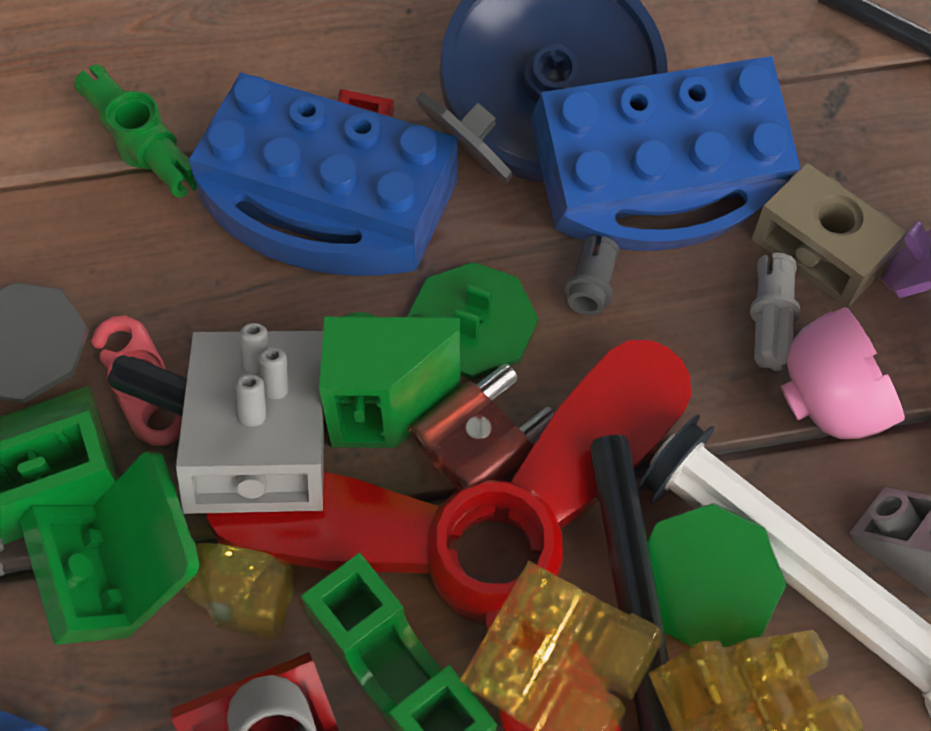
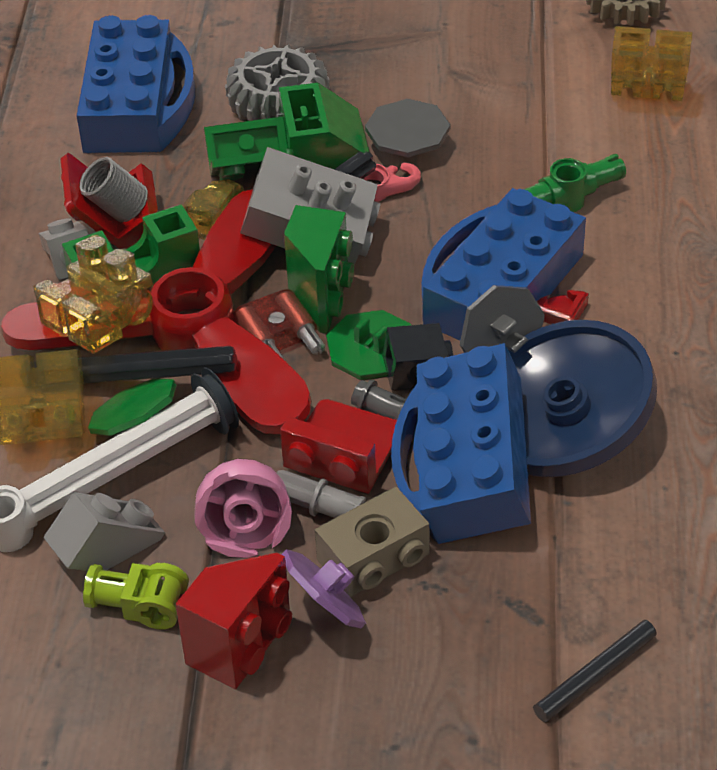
camera: 105 degrees right, 15 degrees down
(514, 241) = (412, 346): none -> black brick
(687, 298) = (339, 444): none -> red bracket

